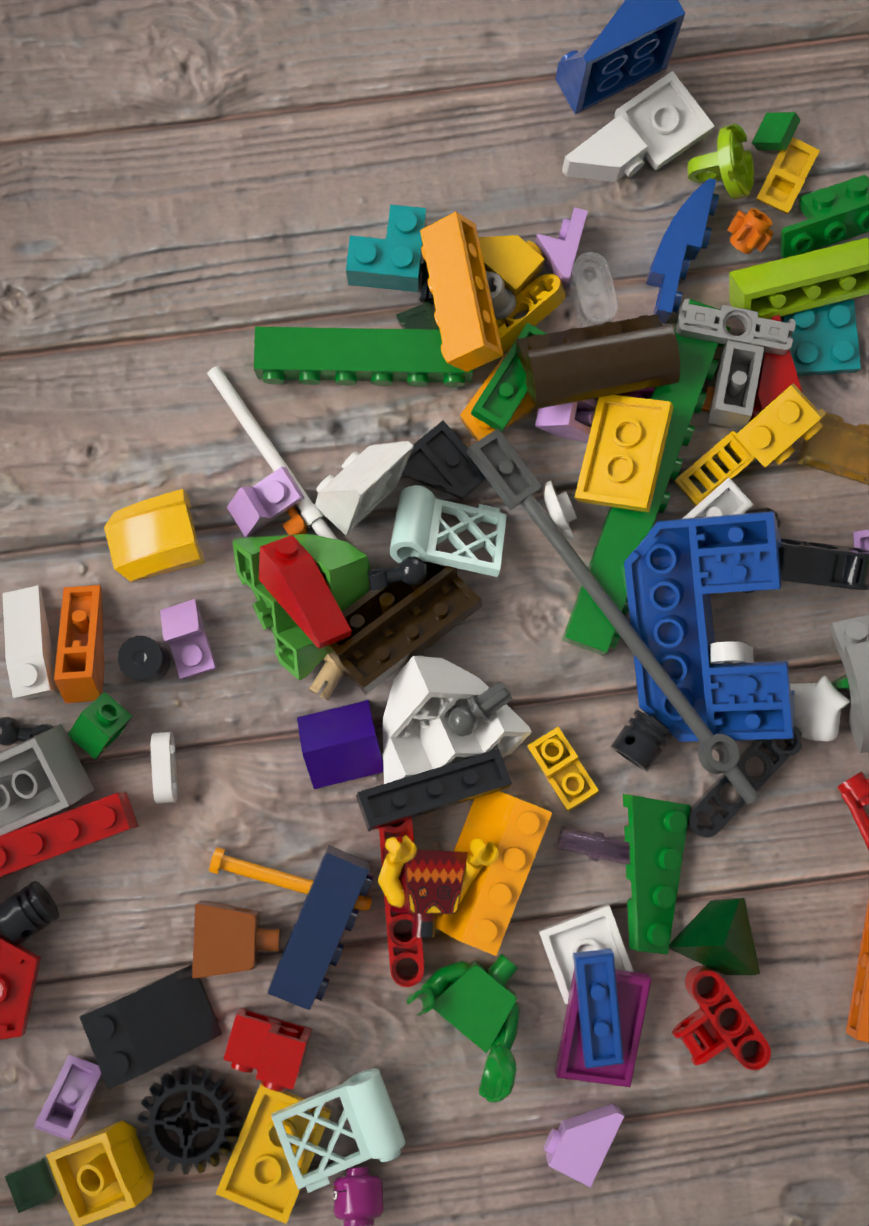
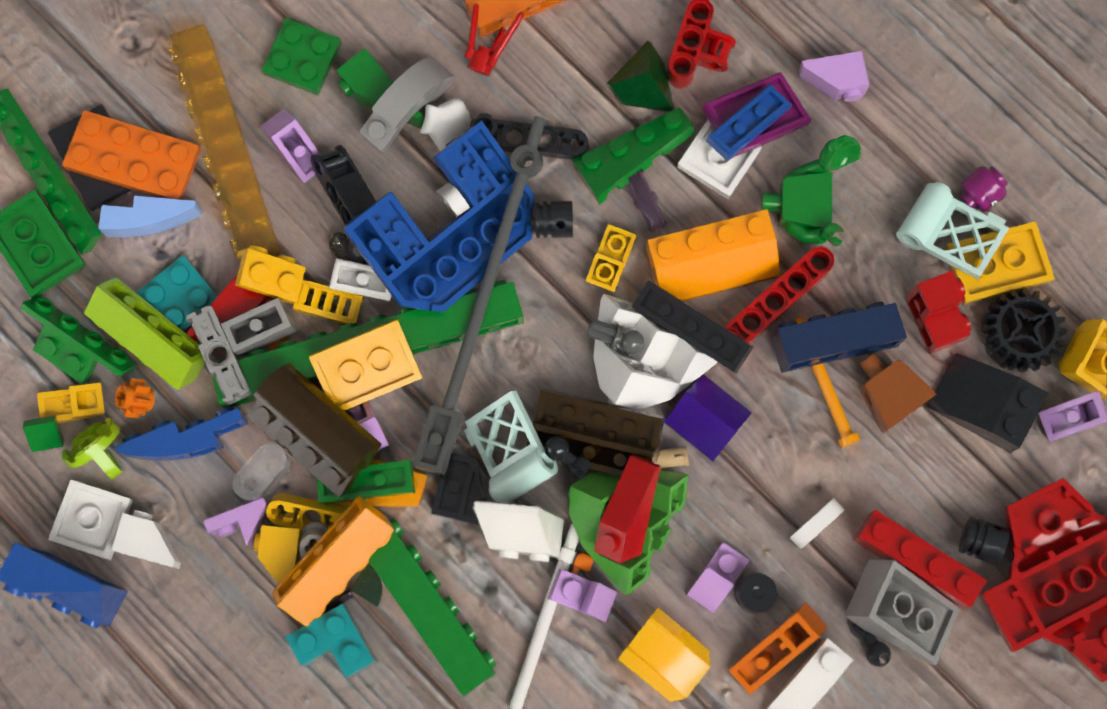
camera: 125 degrees left, 5 degrees down
(99, 725) = (824, 587): green brick -> none
(430, 880) = (752, 283): torso -> none
(559, 509) = (436, 384): white animal -> none

